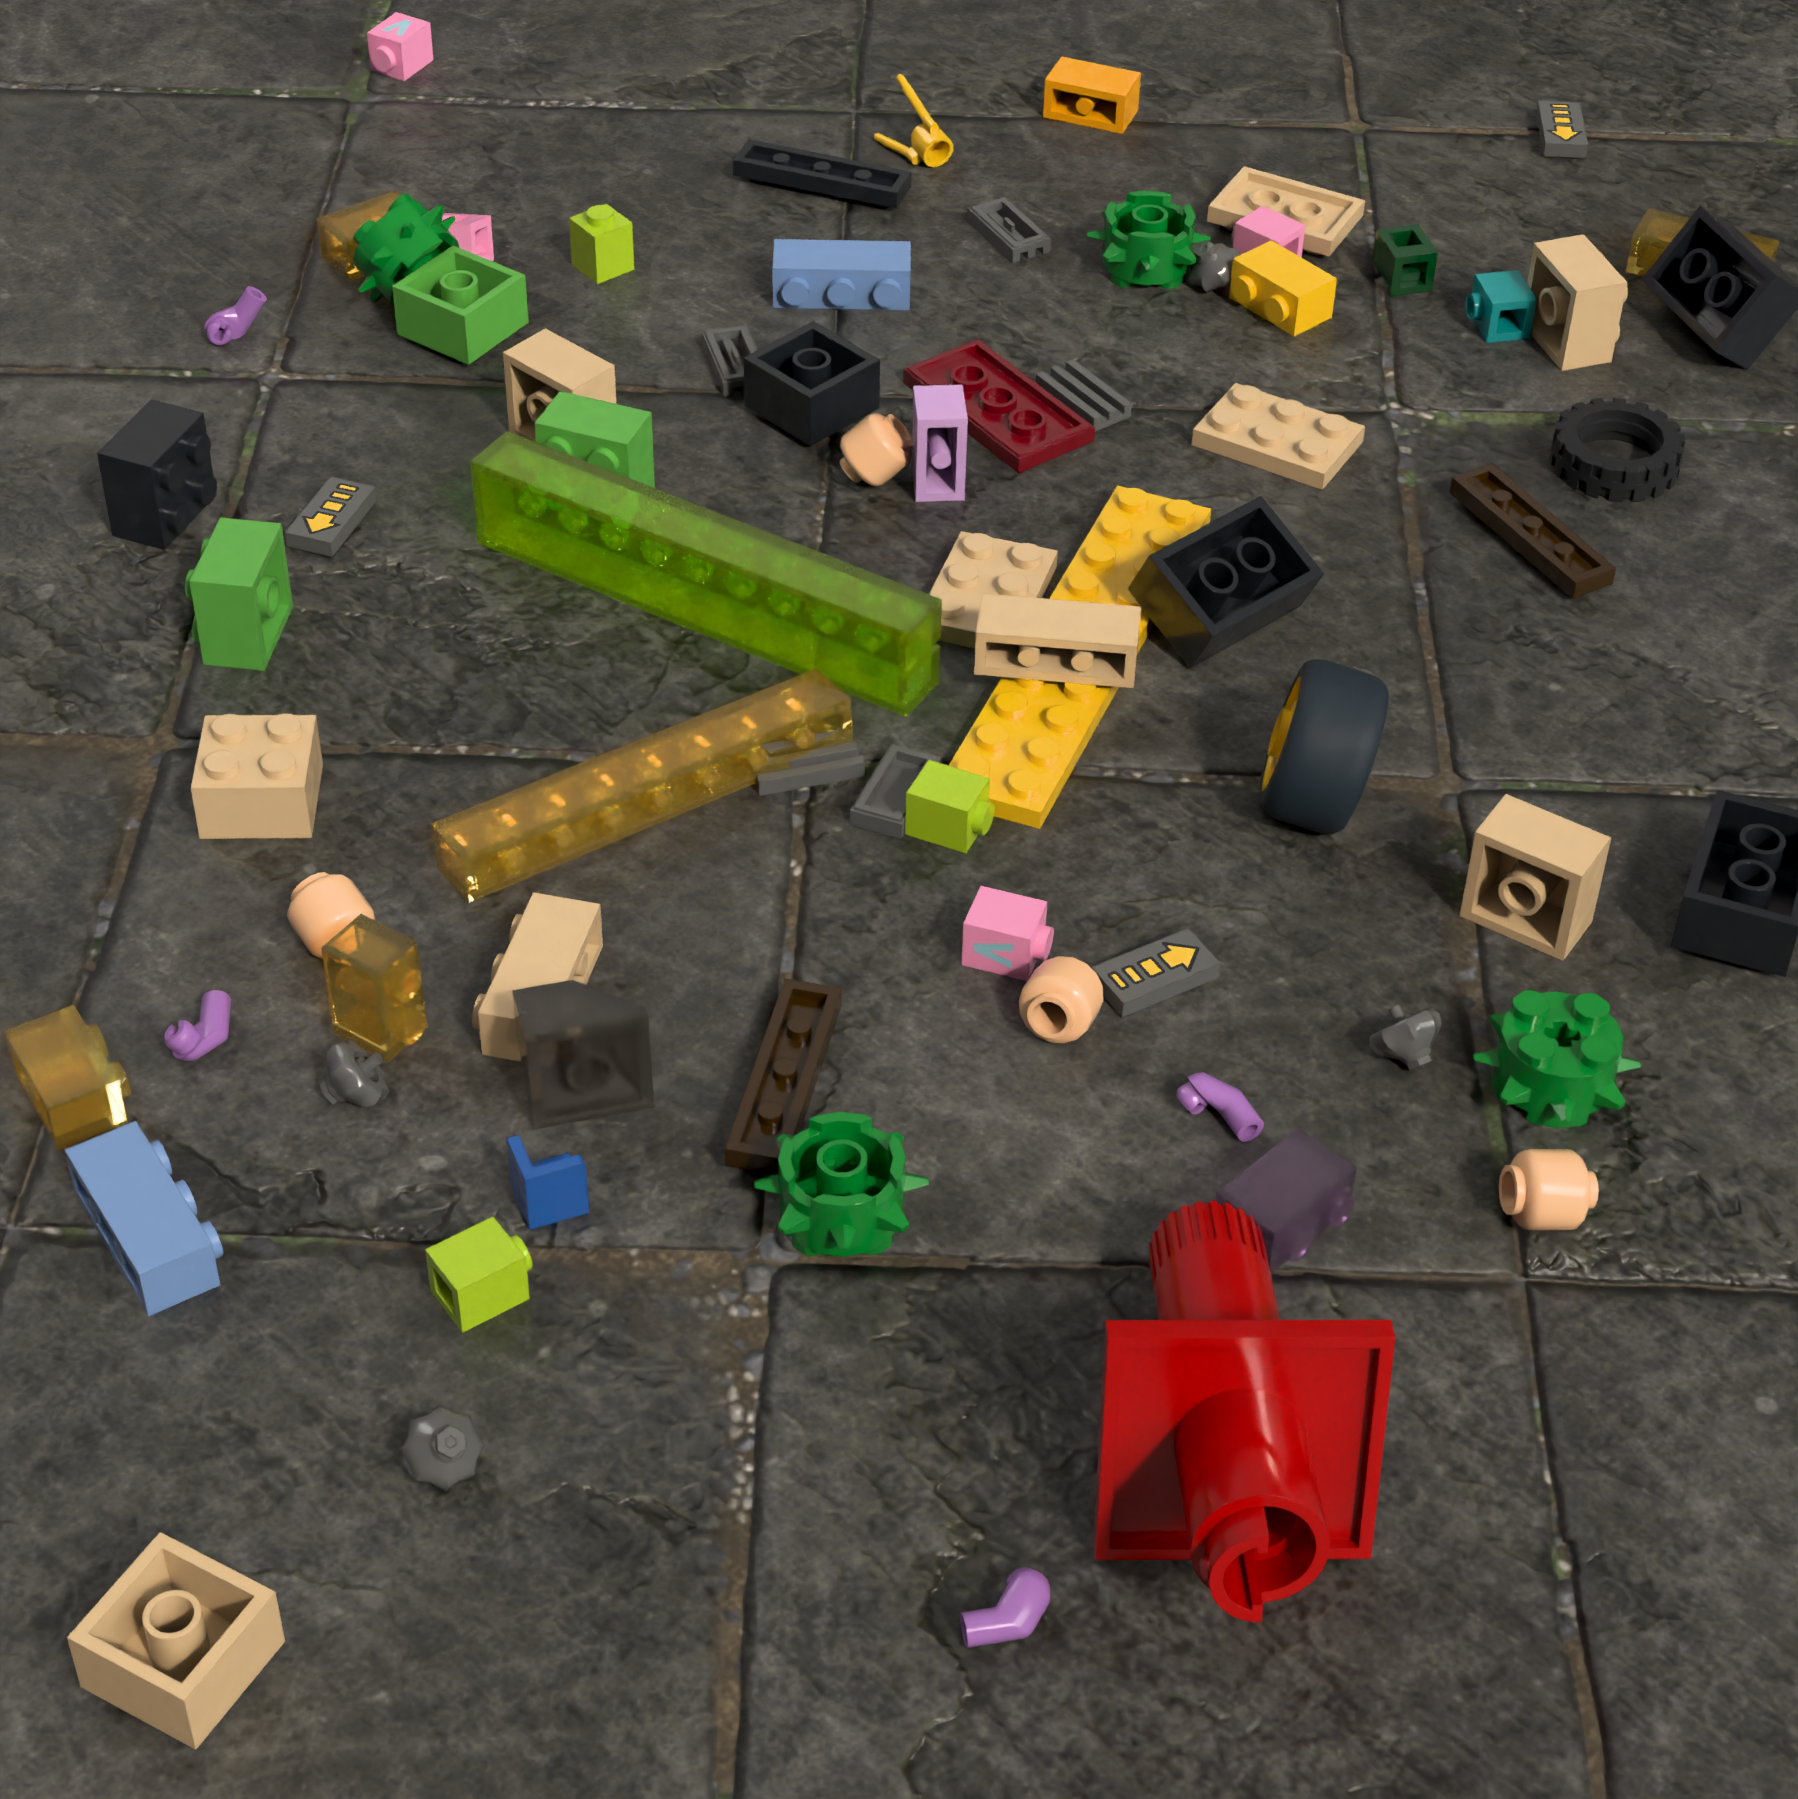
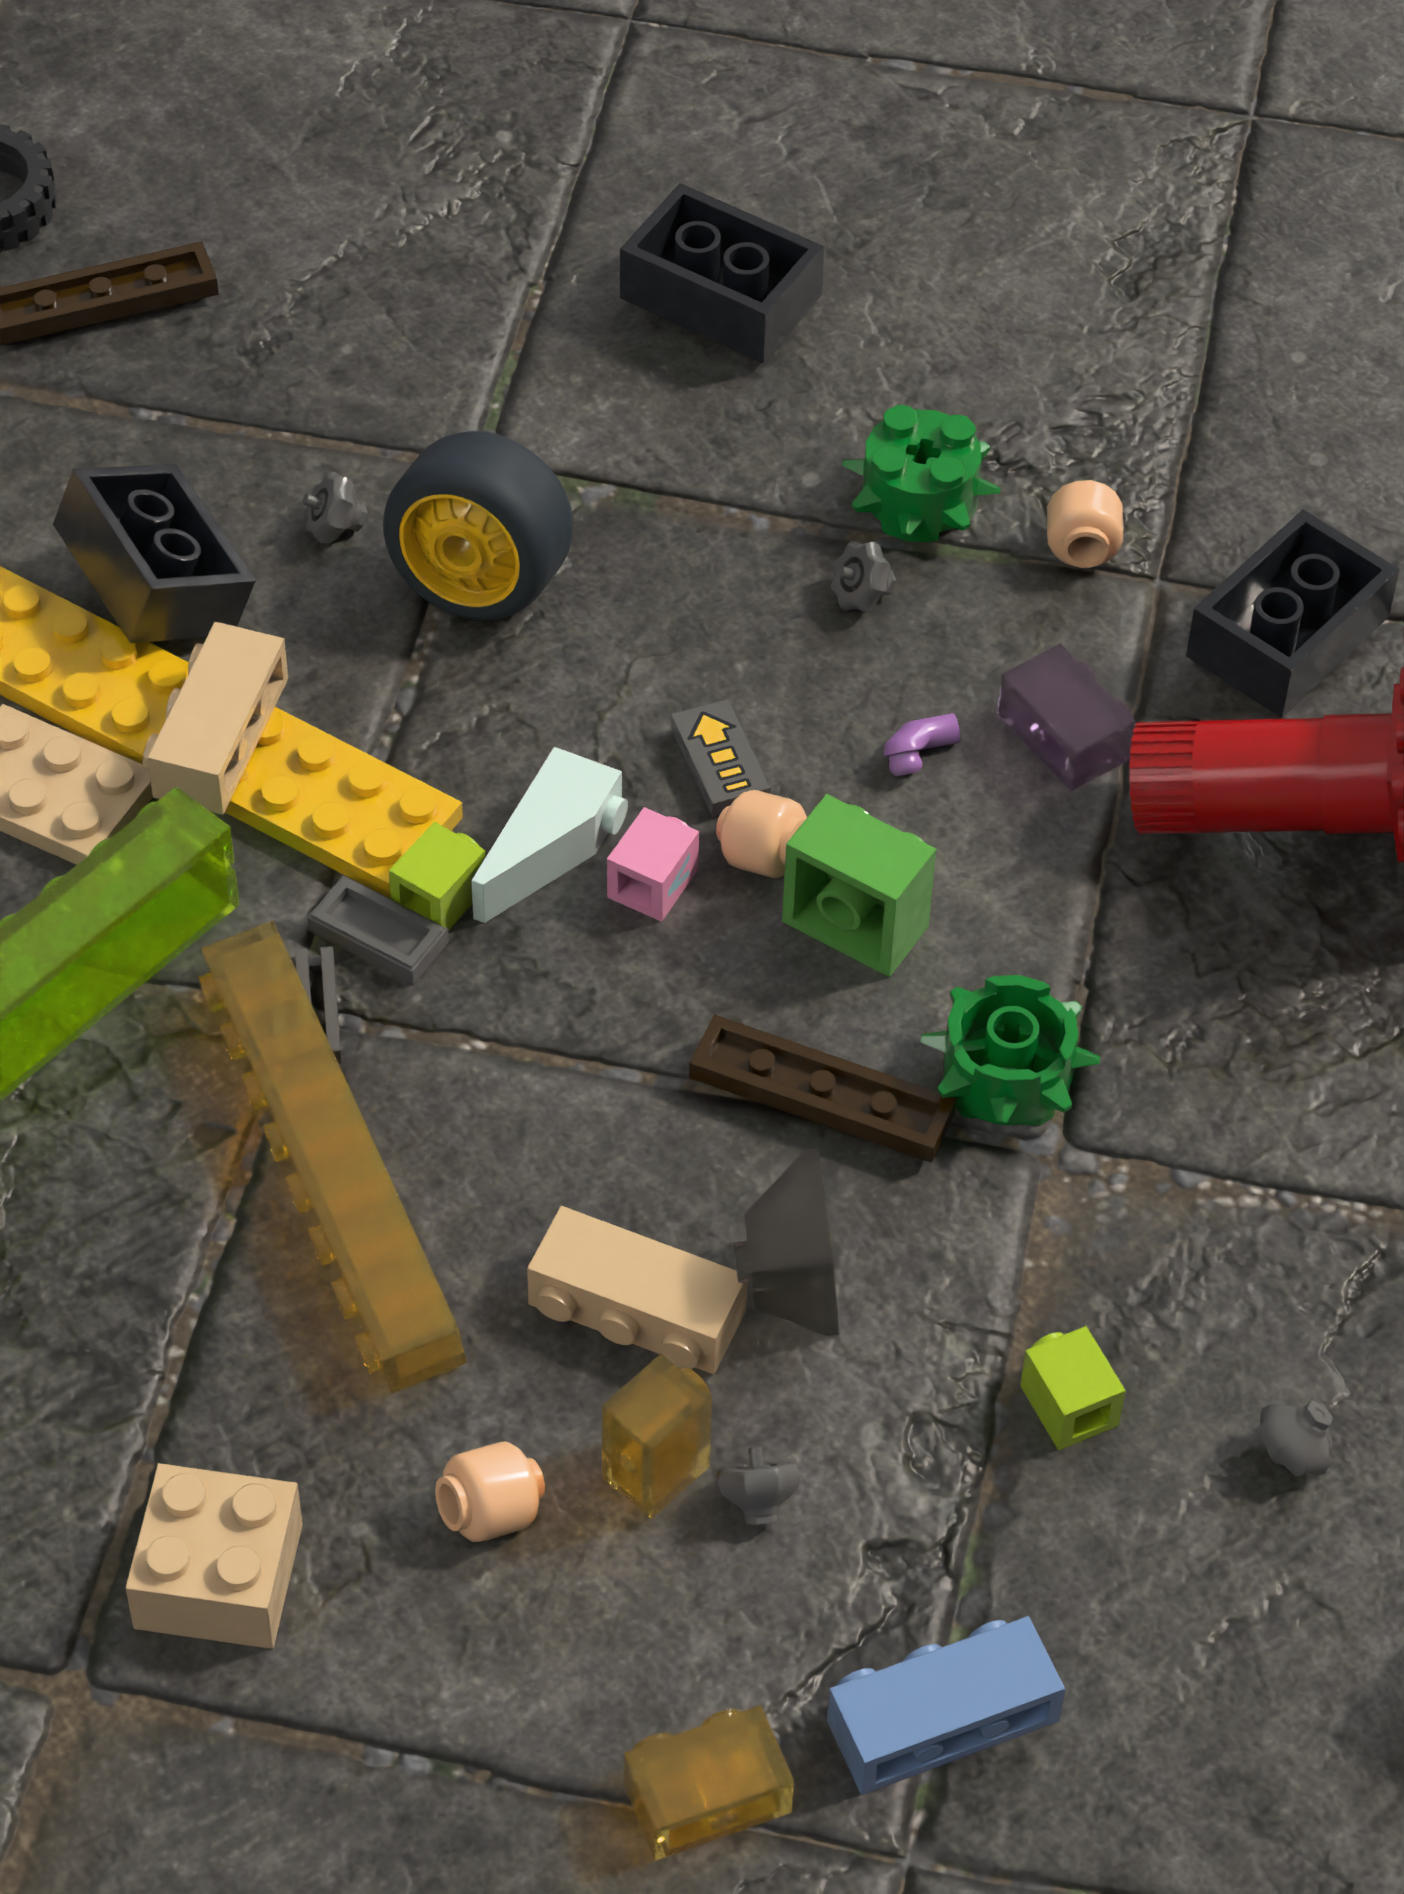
camera: 80 degrees left, 10 degrees up
(212, 1030) = (642, 1639): medium lavender arm -> none
(547, 1188) = (949, 1319): blue panel -> none
(1000, 1051) = (858, 884): none -> bright green brick
(1017, 859) = (550, 832): none -> light aqua slope
(1492, 1361) = (1292, 613): none -> black brick
(1534, 876) = (691, 419): tan brick -> none

